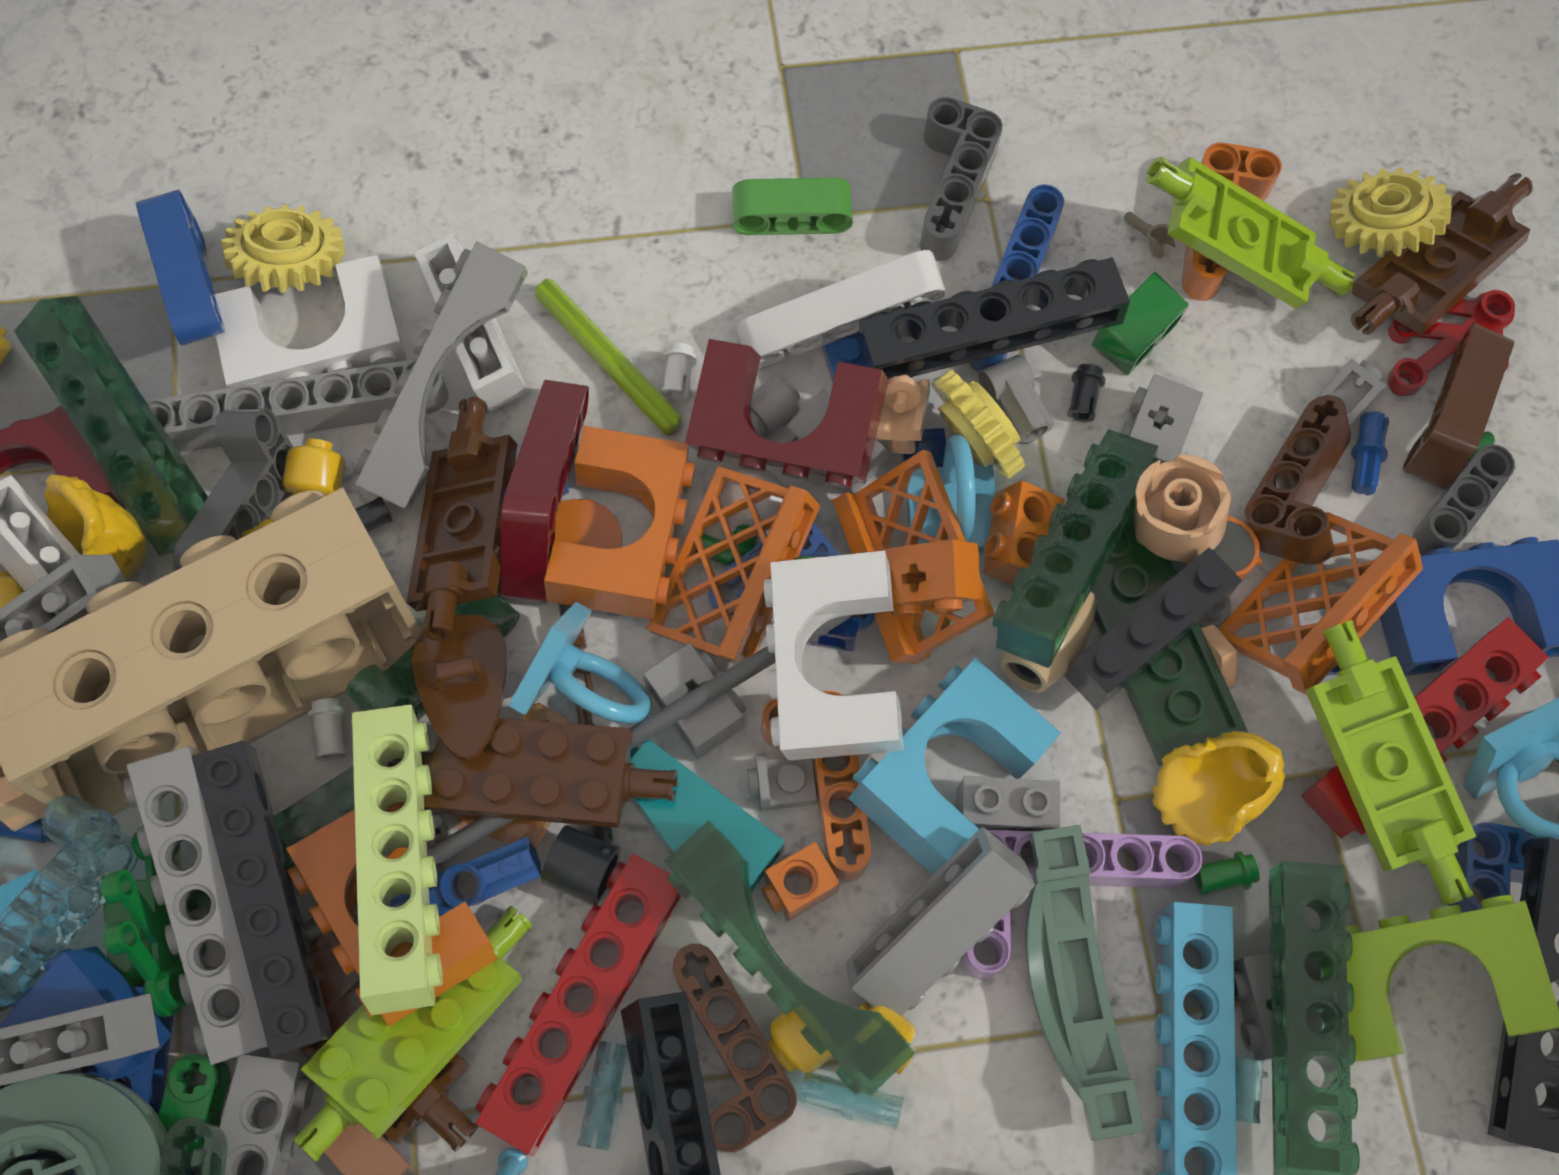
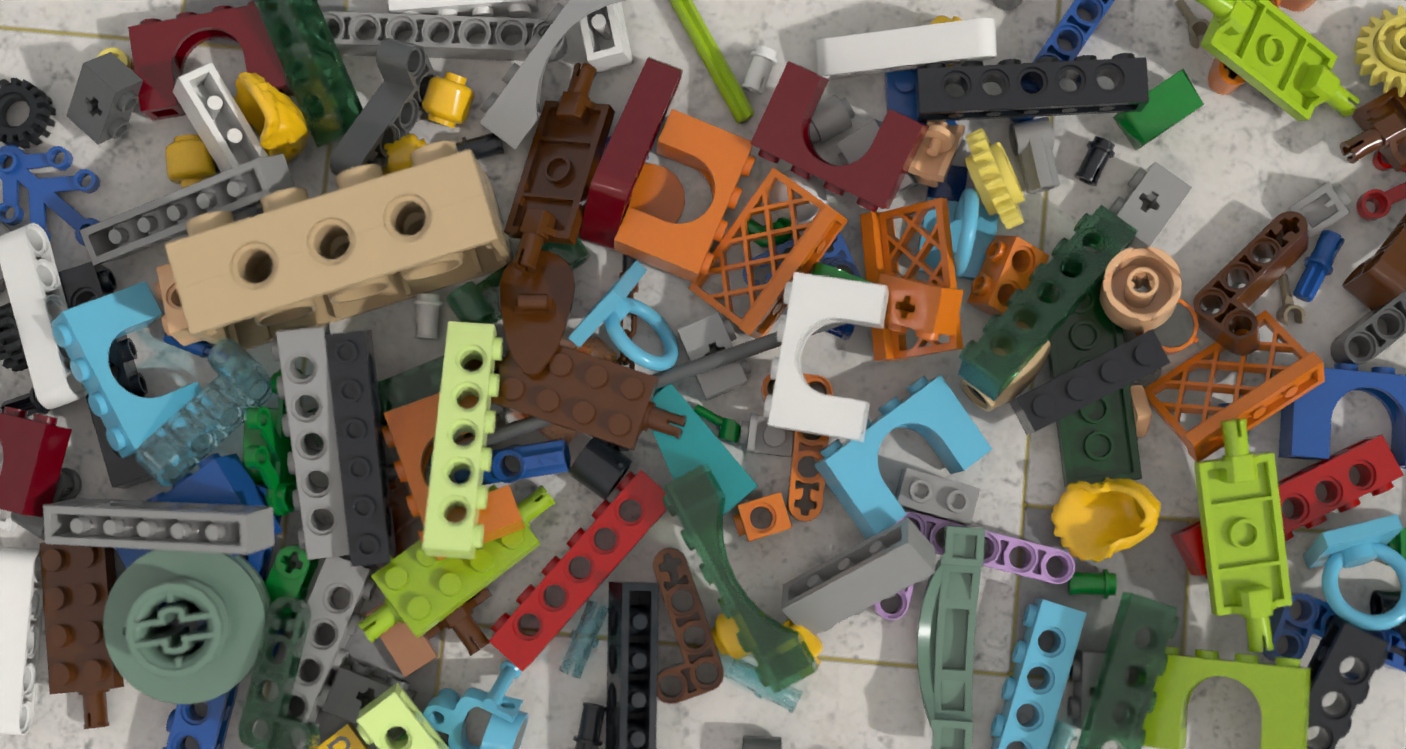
camera: 20 degrees right, 15 degrees up
(733, 782) = (729, 430): none -> green hand
(1362, 505) = (1288, 304): none -> dark tan hand

